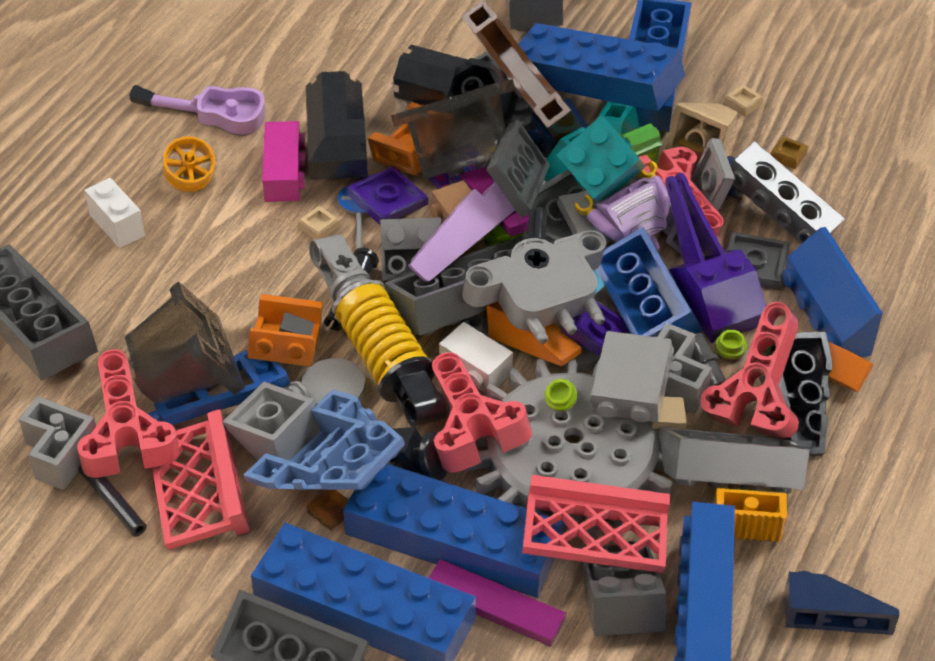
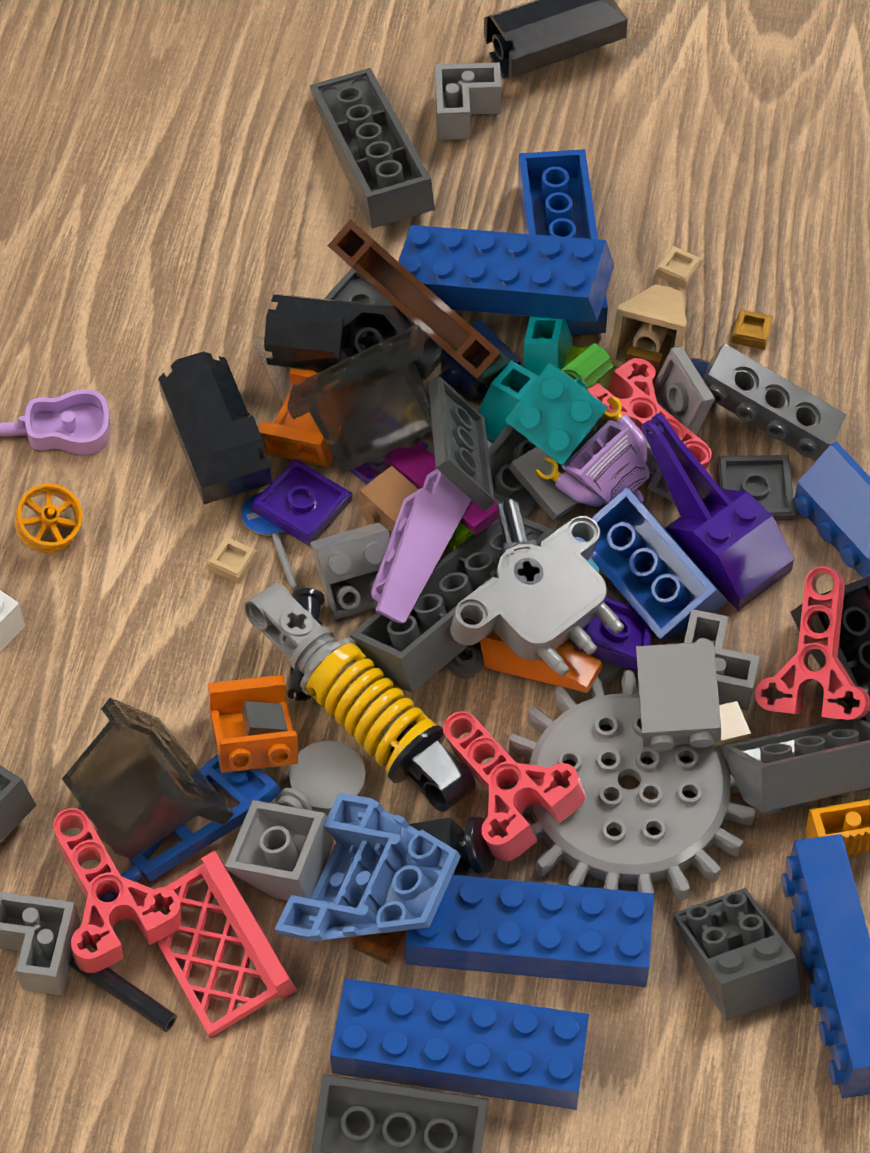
camera: 15 degrees left, 10 degrees up
(283, 161) = (161, 484): dark pink brick -> none
(481, 356) = (487, 697): white piece -> none
(504, 604) = (608, 1005): magenta tile -> none
(560, 395) = (602, 734): lime plate -> none
(597, 503) = (680, 864): coral fence -> none
(704, 355) = (746, 642): dark grey pin -> none
(731, 344) = (763, 610): lime plate -> none

